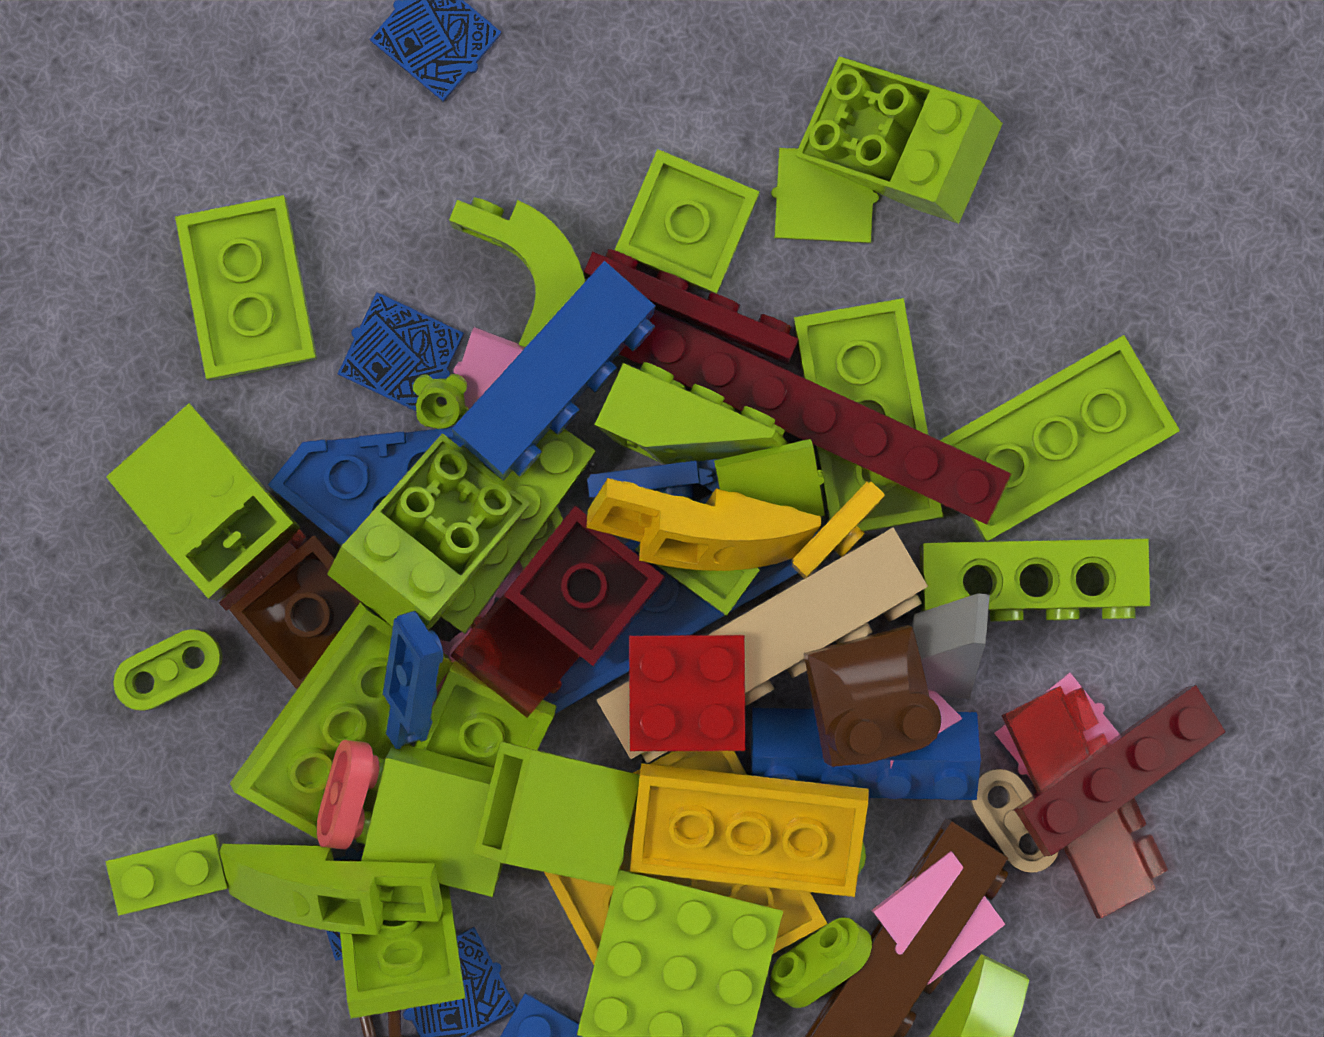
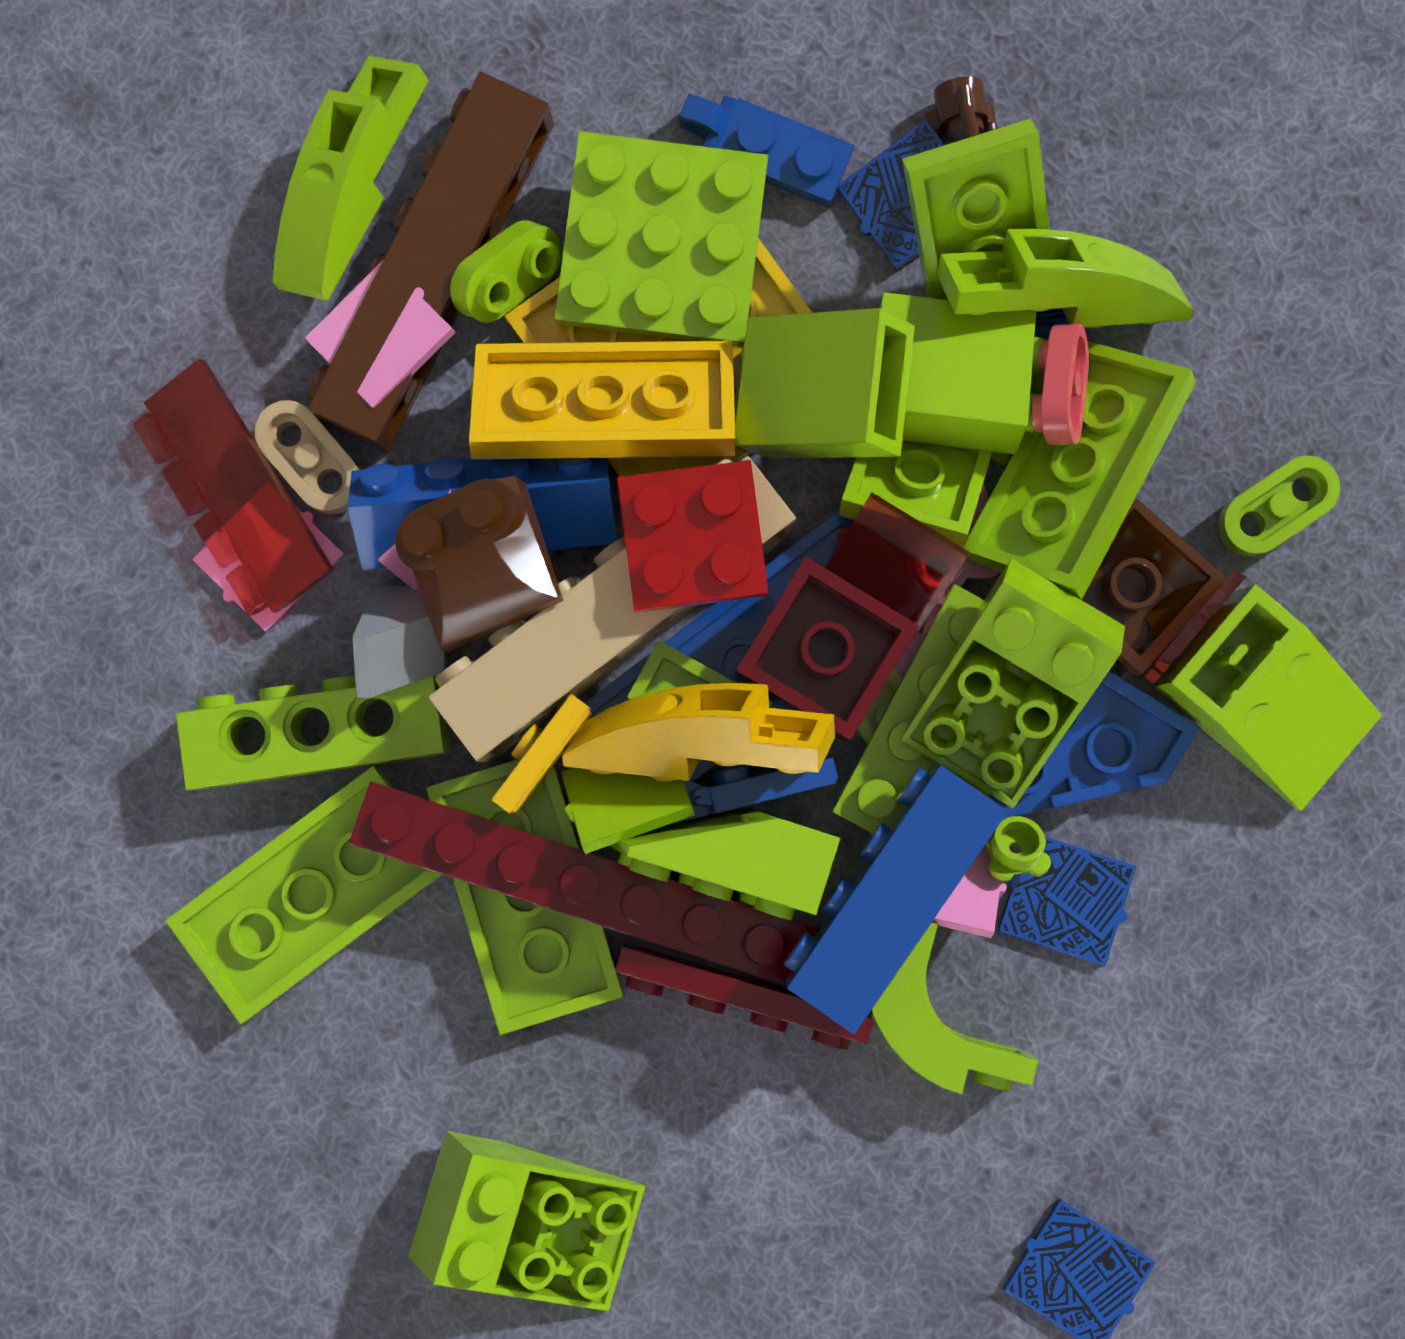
camera: 170 degrees right, 0 degrees up
(166, 874) = (1245, 282): lime plate -> none
(246, 288) = (1257, 952): lime plate -> none
(411, 679) = (1012, 517): blue hinge -> none
(687, 221) = (760, 1093): lime plate -> none
(819, 202) = (608, 1134): lime piece -> none
(1119, 770) = (194, 524): dark red plate -> none

